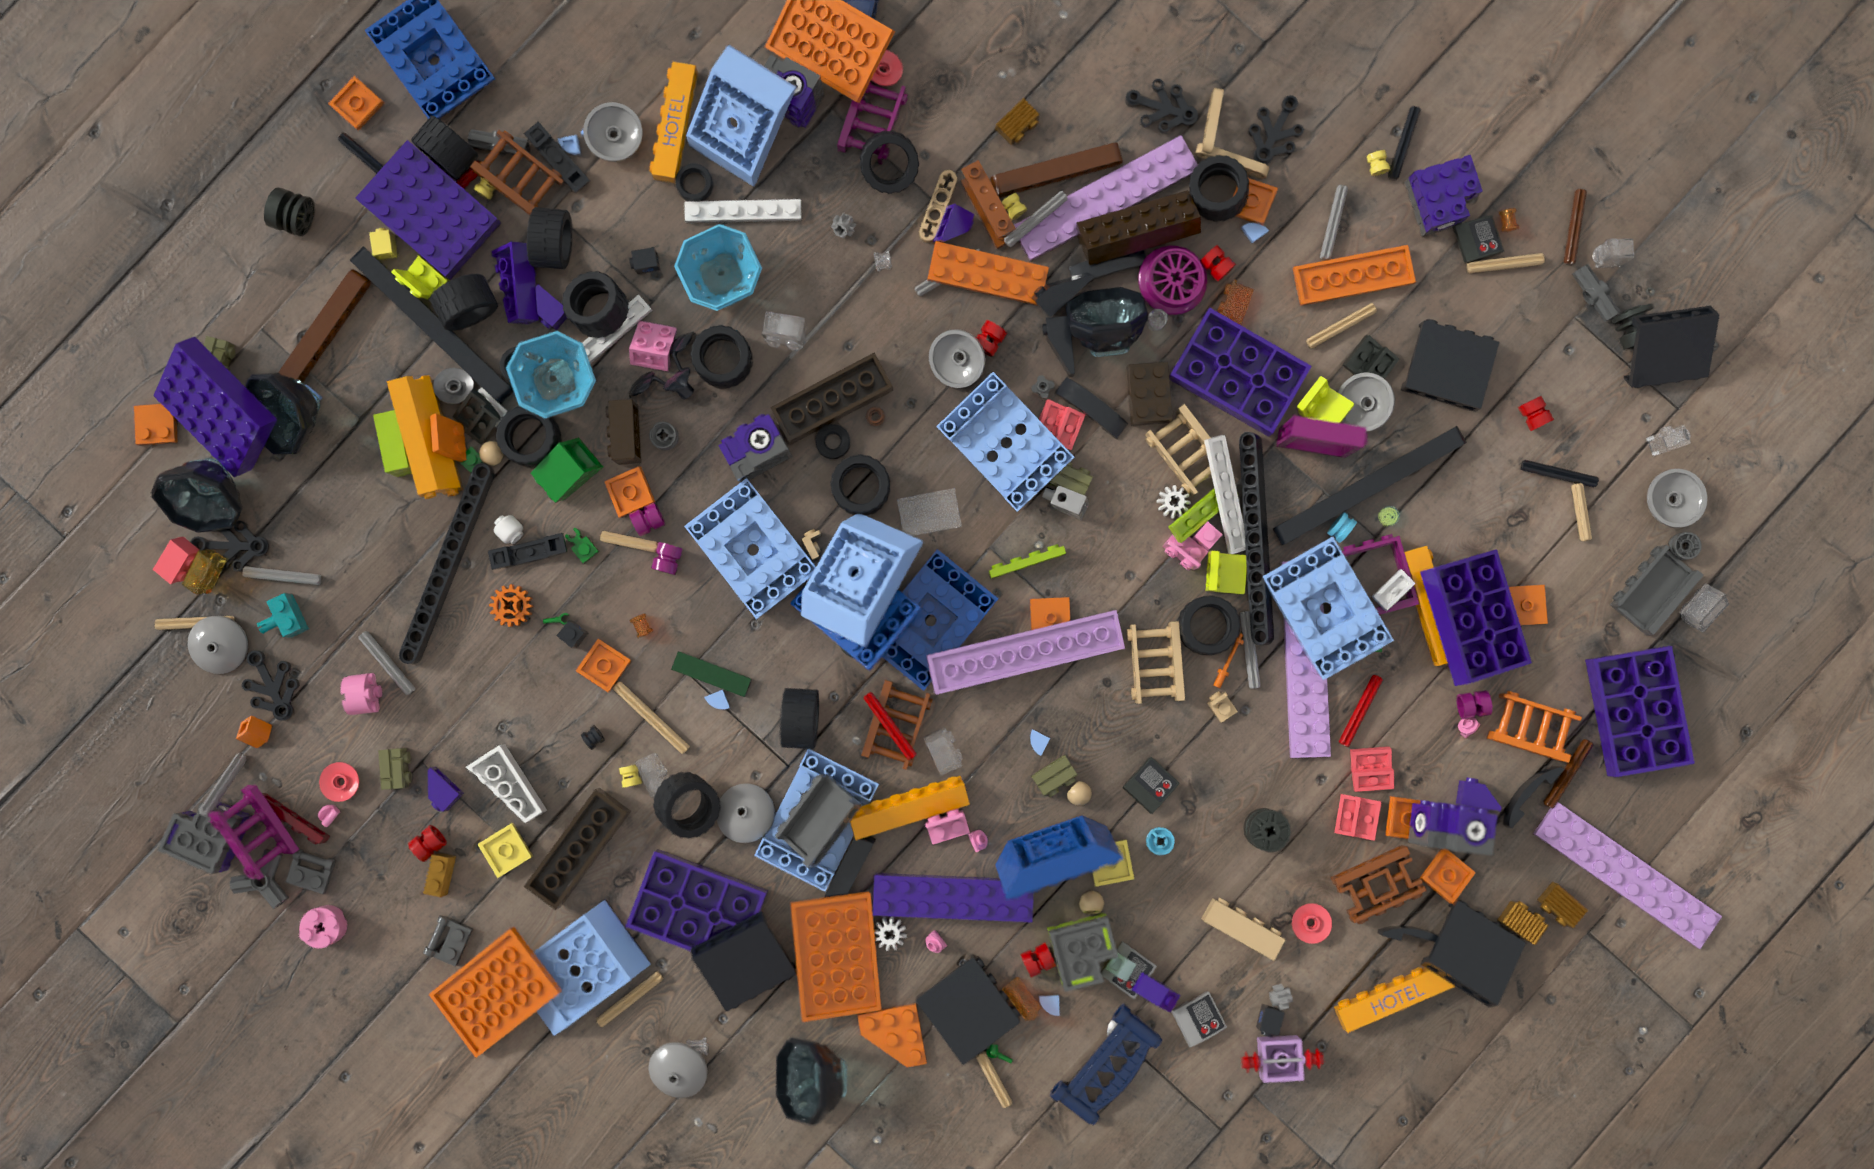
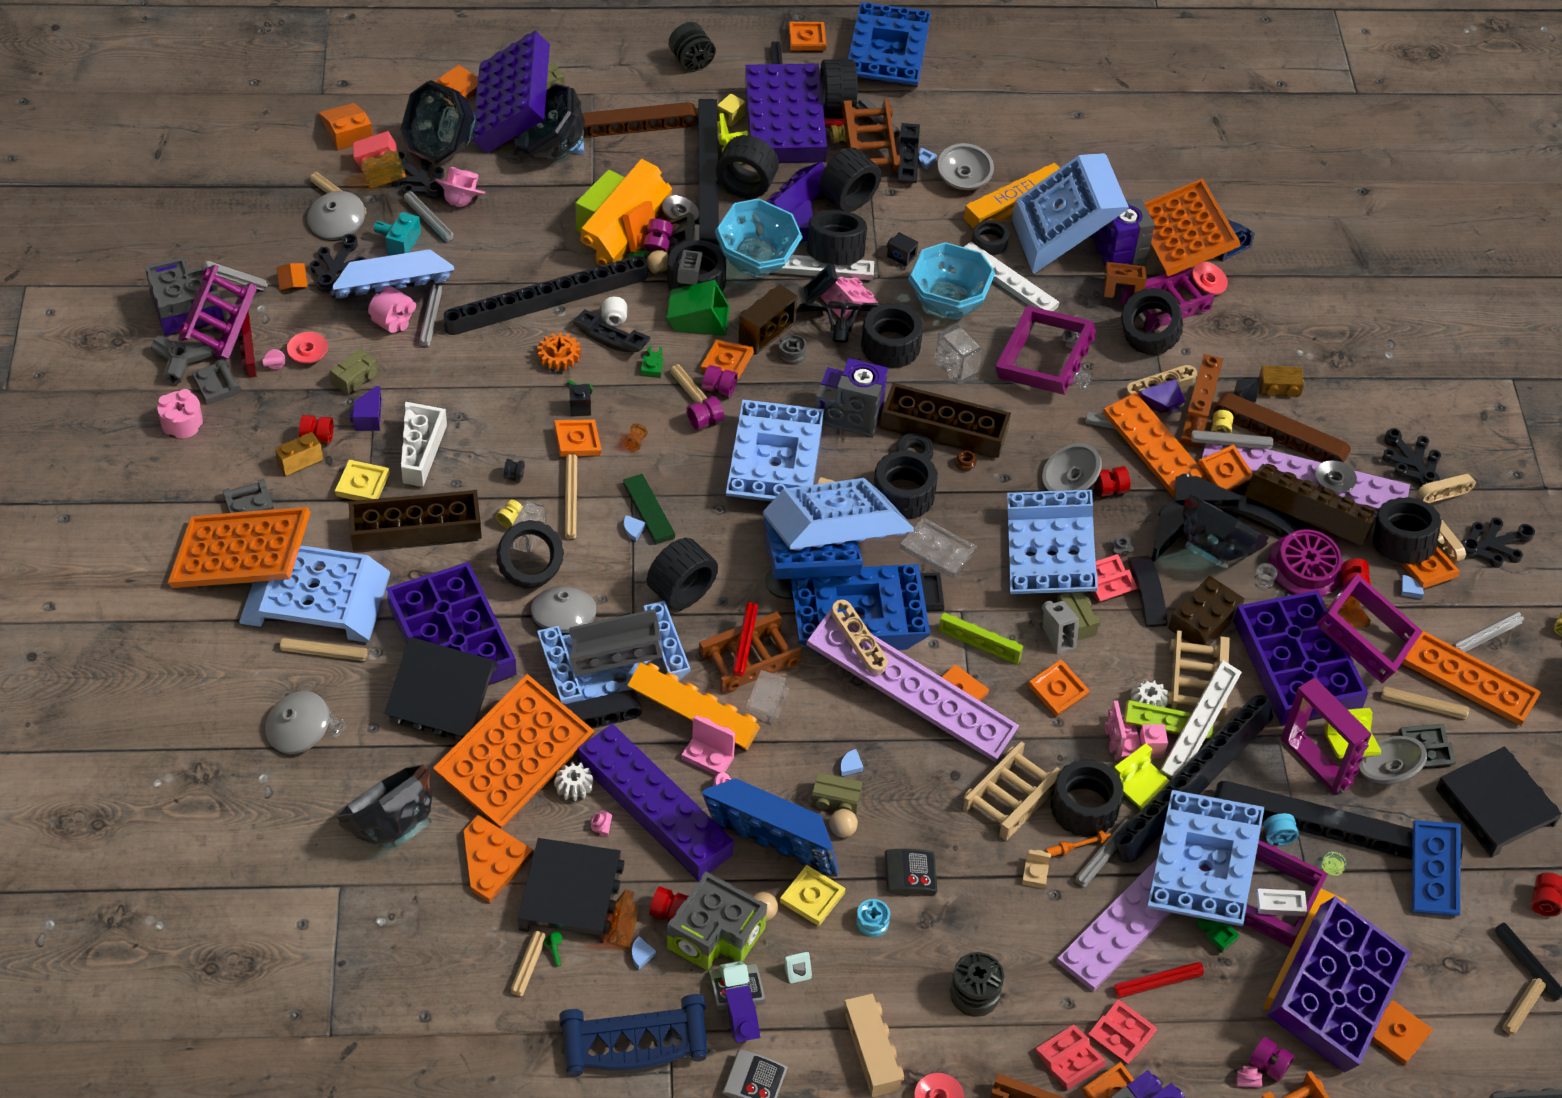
camera: 40 degrees right, 35 degrees down
(121, 551) = (346, 125): none -> orange slope
(276, 530) = (459, 186): none -> bright pink helmet
(331, 672) = (391, 271): none -> light blue slope
(466, 430) = (658, 235): none -> magenta wheel
(535, 459) = (689, 267): none -> dark grey slope
(626, 358) = (820, 283): none -> black tile
(812, 275) = (1019, 336): none -> magenta window
(829, 133) = (1123, 274): none -> dark orange panel
(957, 552) = (932, 591): none -> black tile
(966, 658) = (858, 637): none -> tan beam
(1002, 156) = (1246, 389): none -> black slope
(1055, 250) = (1226, 468): none -> orange plate
(1110, 550) = (1058, 688): none -> orange plate
(1134, 177) = (1336, 476): none -> flat silver dish
(1150, 920) = (798, 967): none -> light aqua slope
(1243, 333) = (1354, 642): none -> magenta window
(1457, 463) = (1436, 868): none -> blue tile

